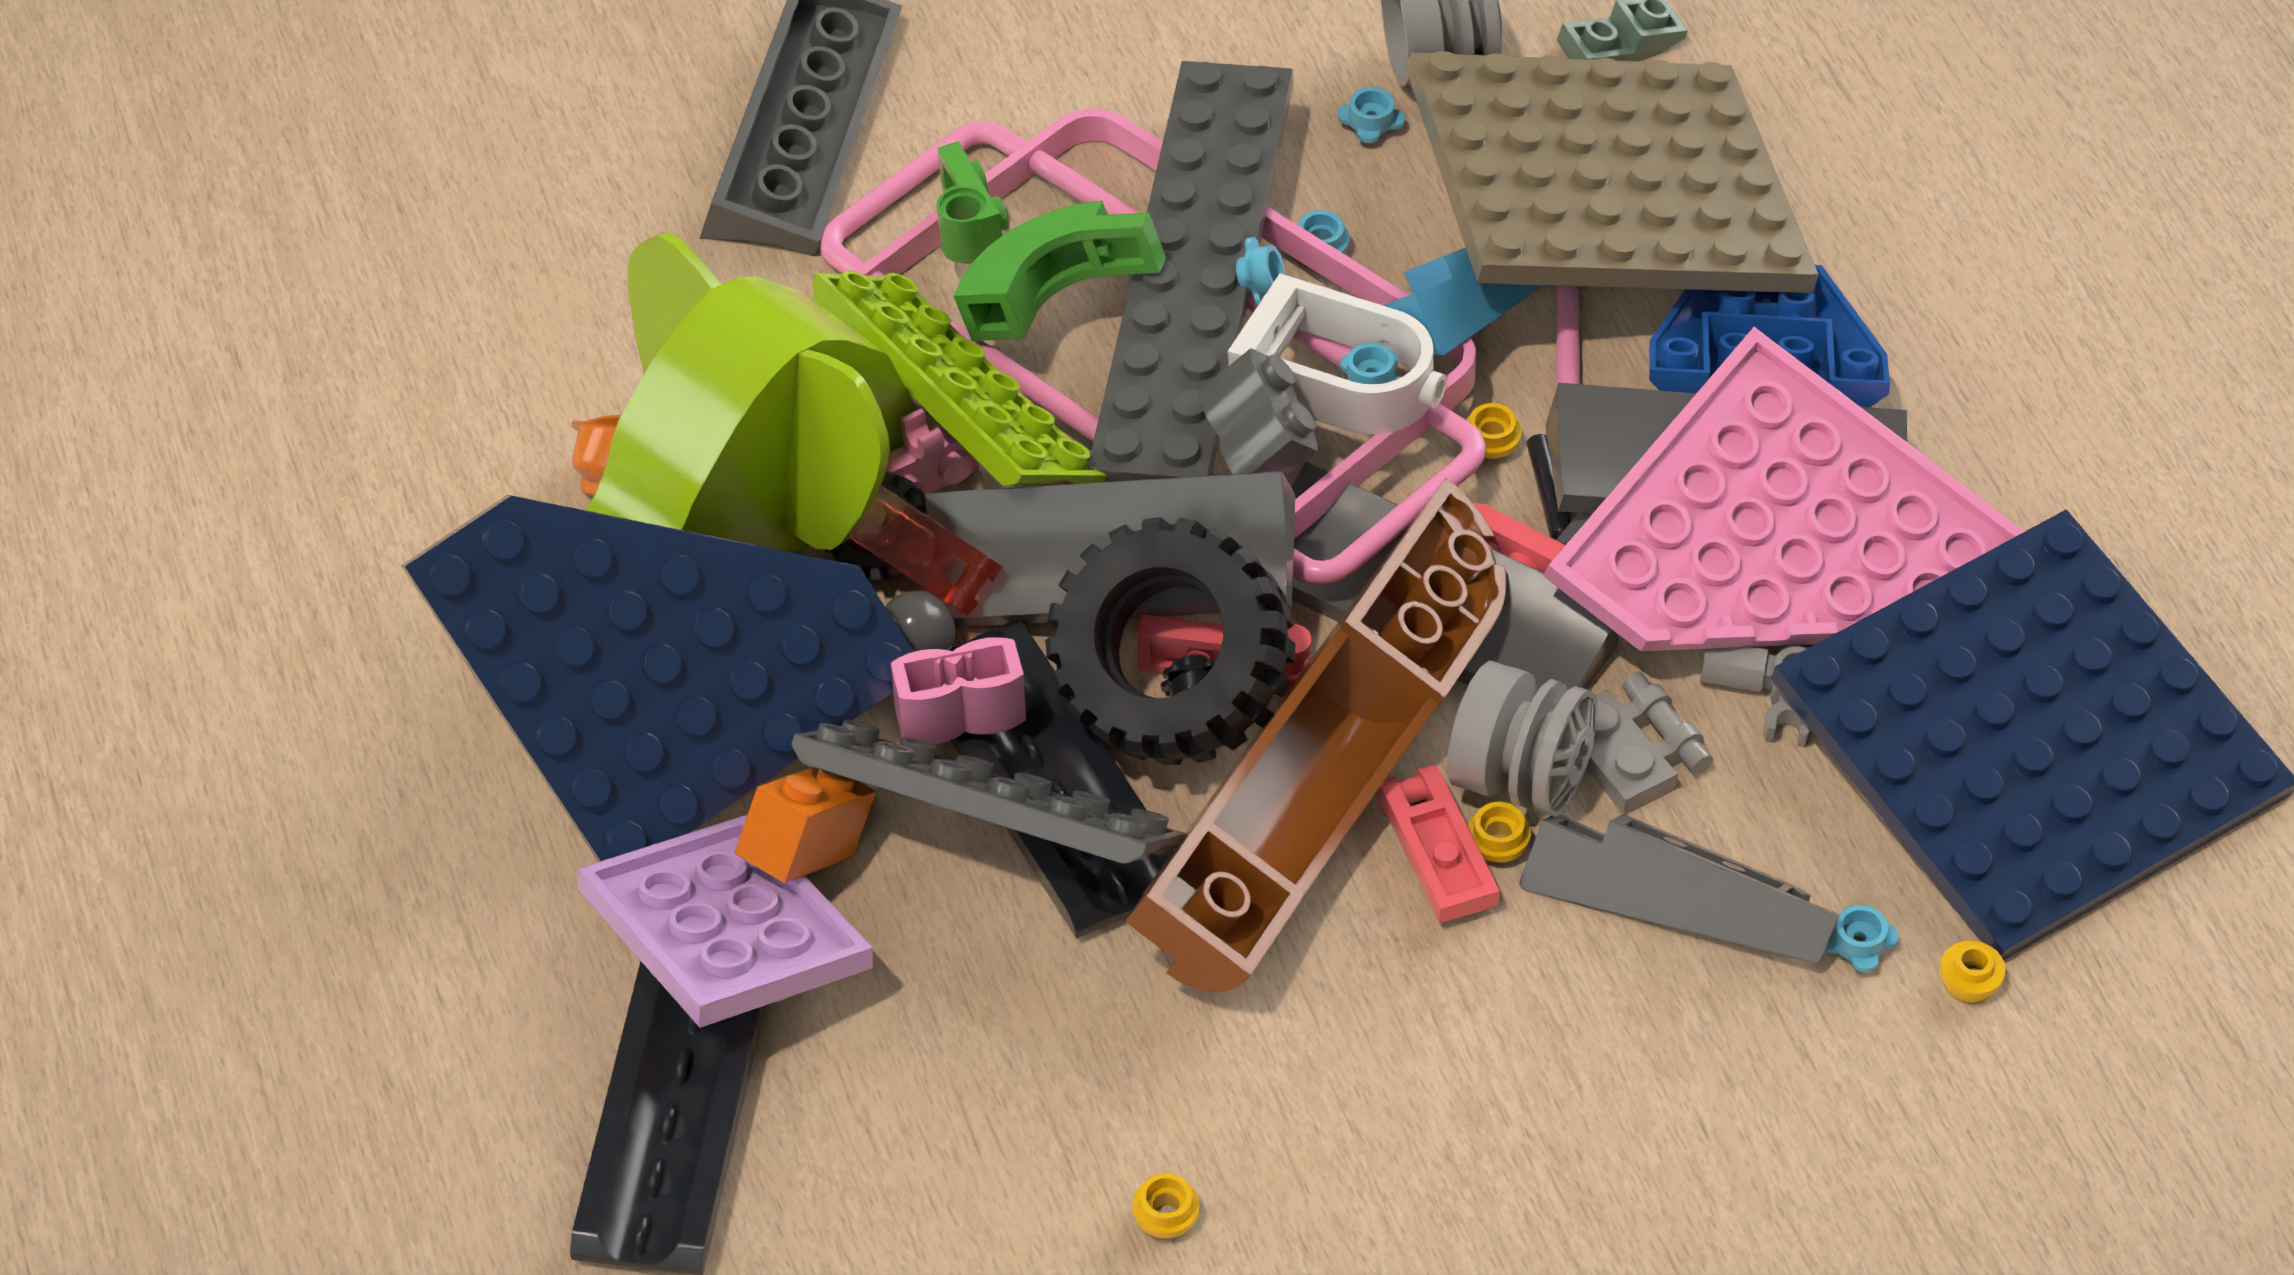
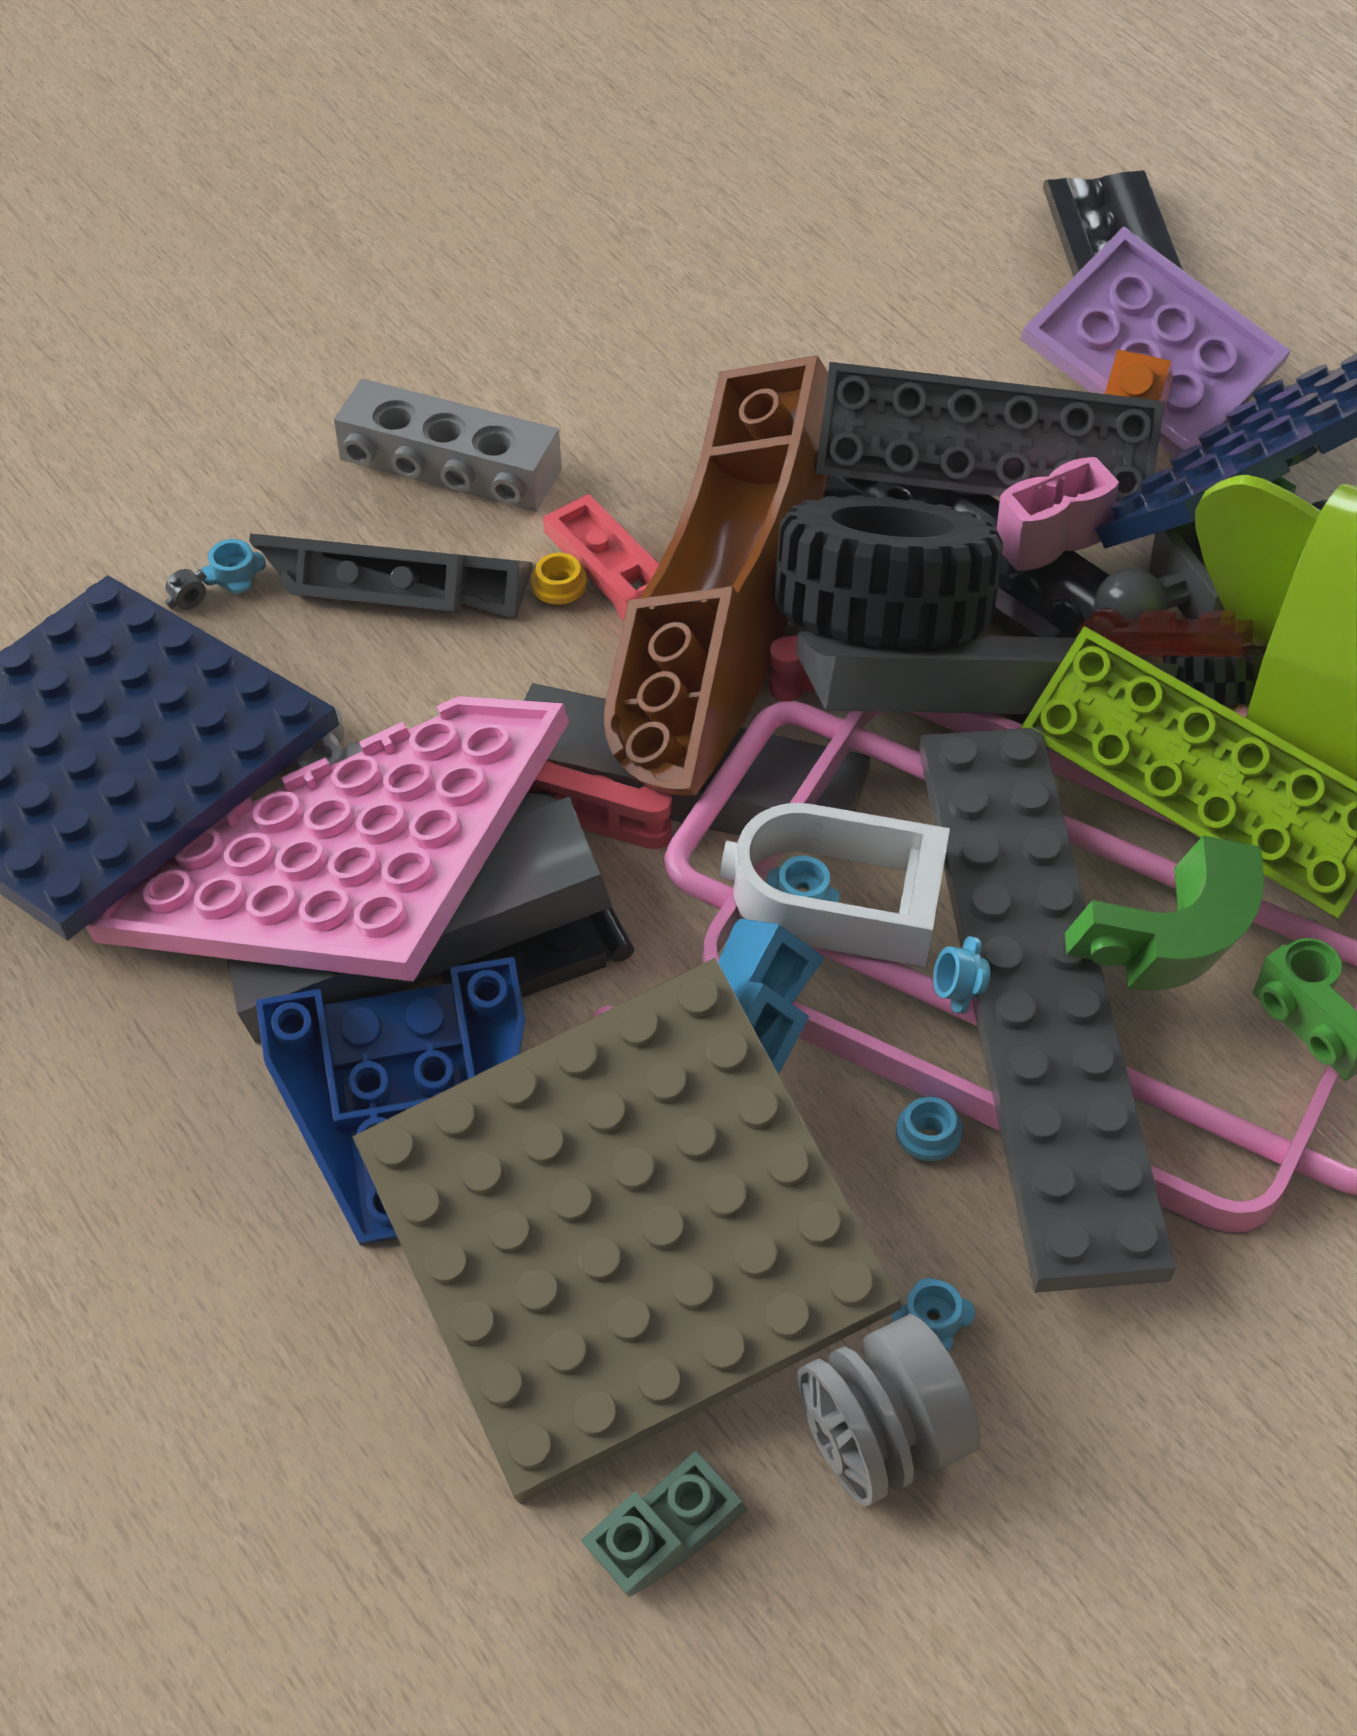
camera: 165 degrees right, 0 degrees up
(1160, 1191) = (733, 282): yellow plate -> none
(1259, 416) = (889, 769): dark grey brick -> none
(1498, 428) = (671, 930): yellow plate -> none
(1522, 738) = (550, 600): light grey wheel -> none
(1599, 1054) = (448, 444): none -> light grey brick
(1623, 757) = (458, 666): light grey plate -> none
(1916, 919) = (185, 589): none -> dark grey piece
(1969, 984) = (135, 562): yellow plate -> none

